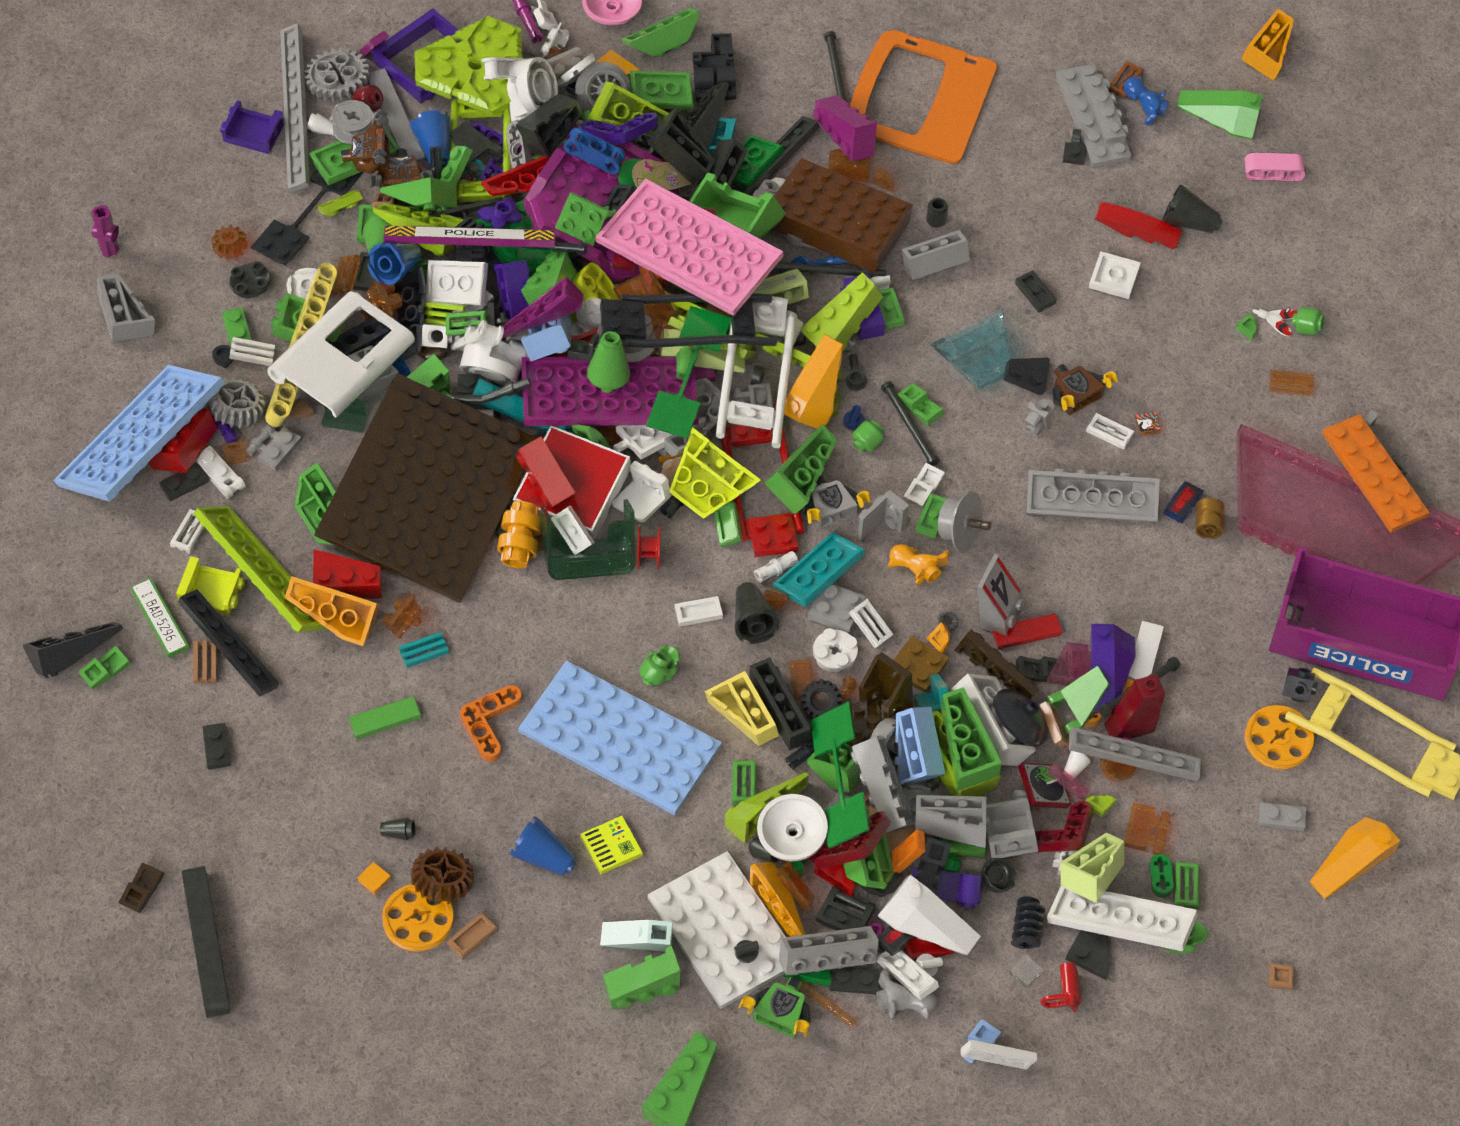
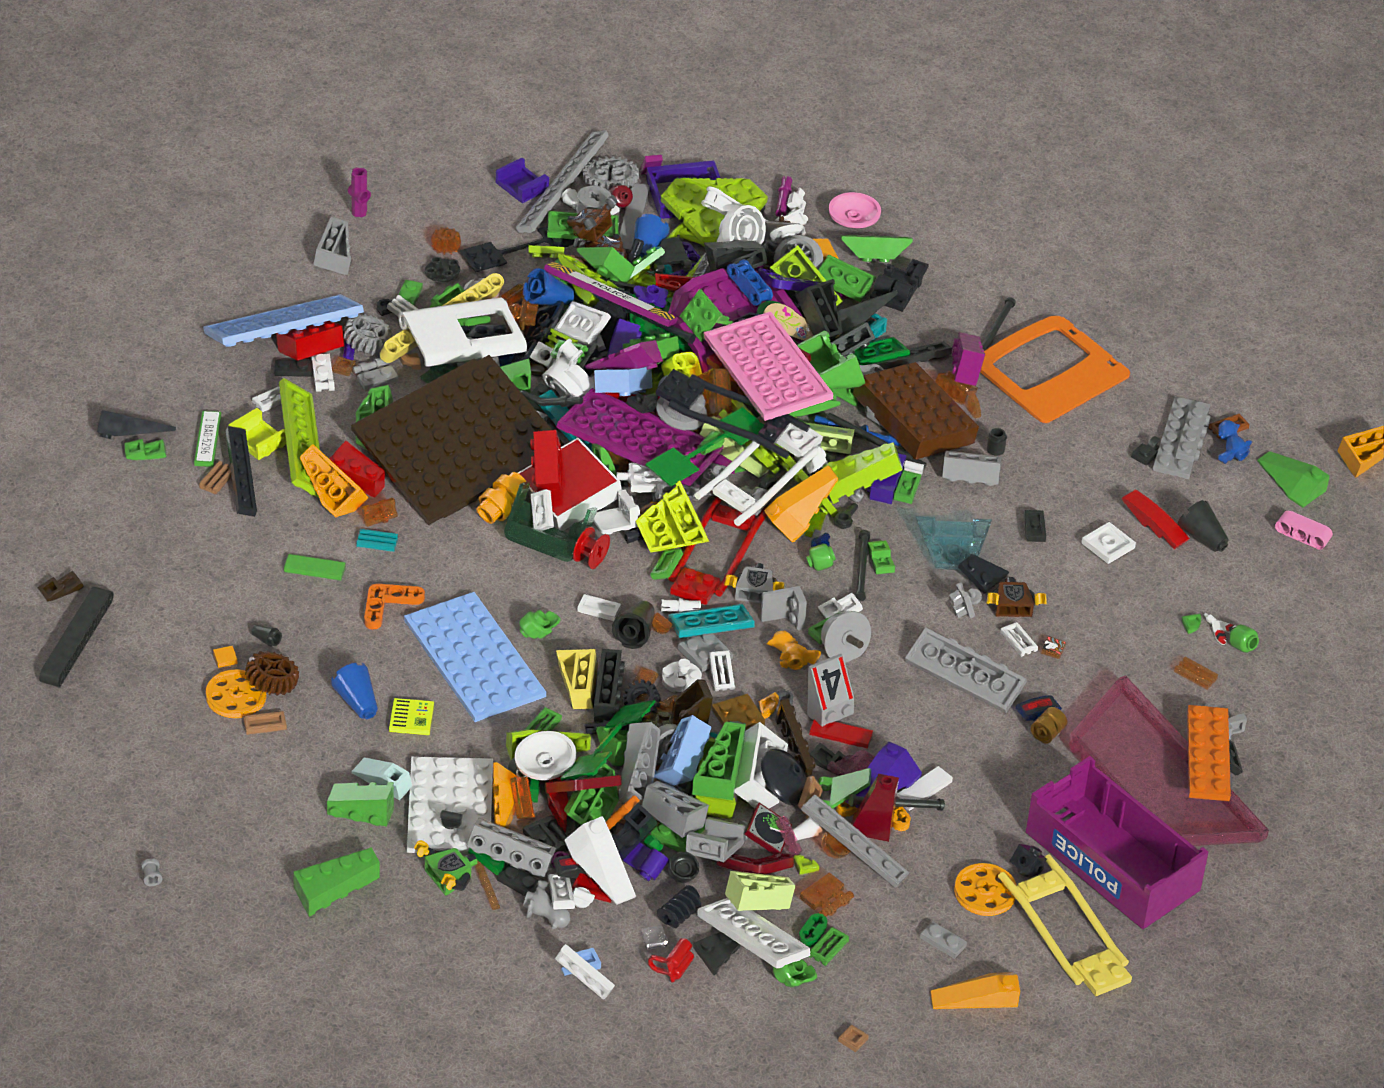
camera: 30 degrees right, 15 degrees down
(216, 746) = (182, 529): pearl dark grey plate -> none
(609, 364) = (649, 413): bright green cone -> none
(799, 473) = (746, 549): bright green wedge -> none

